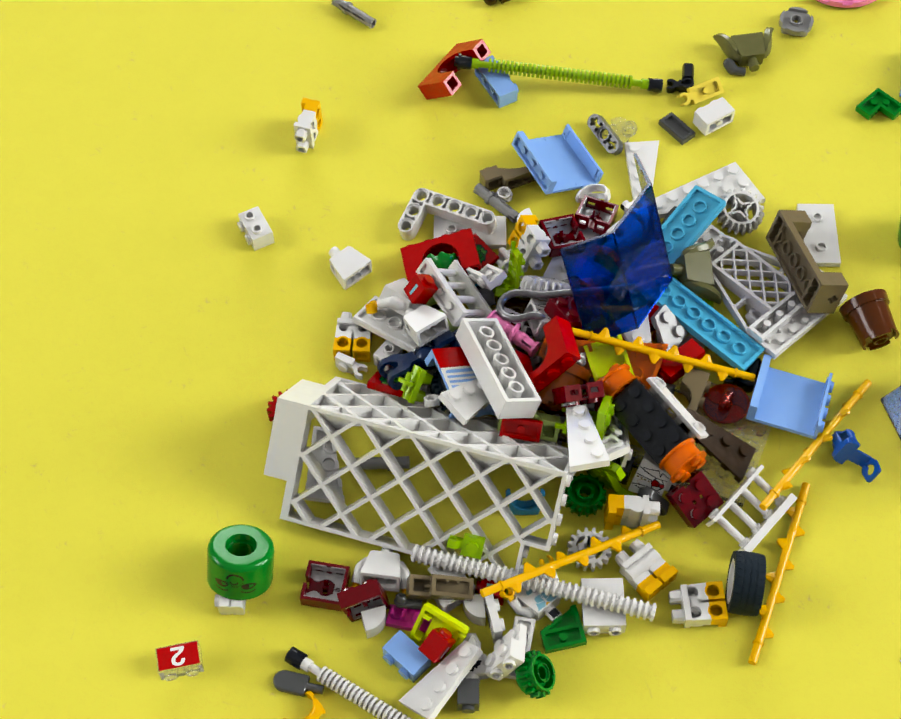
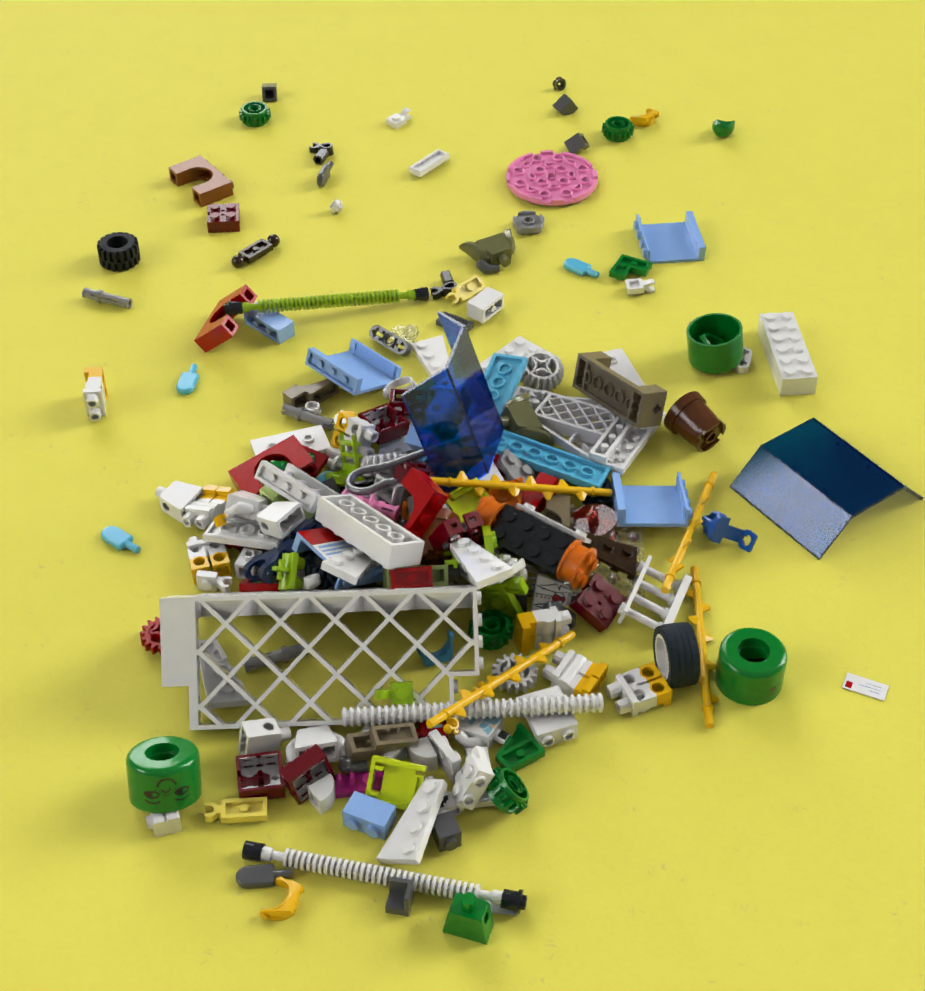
camera: 20 degrees left, 15 degrees down
(179, 660) = (127, 888): brick -> none
(255, 228) = (71, 491): white brick -> none
(282, 292) = (119, 539): none -> medium azure piece
(297, 612) = (238, 810): none -> light yellow plate
(338, 548) = (261, 736): none -> white torso
(369, 283) = (206, 507): none -> white hips
(399, 129) = (188, 381): none -> medium azure piece
(420, 289) = (265, 488): red brick -> none
(437, 644) = (399, 790): red brick -> none
(444, 211) = (260, 428): white beam -> none
(487, 277) = (325, 469): white bracket -> none
(803, 631) = (750, 681): none -> green piece
(828, 91) = (580, 267): none -> medium azure piece
(879, 131) = (637, 286): none -> white plate

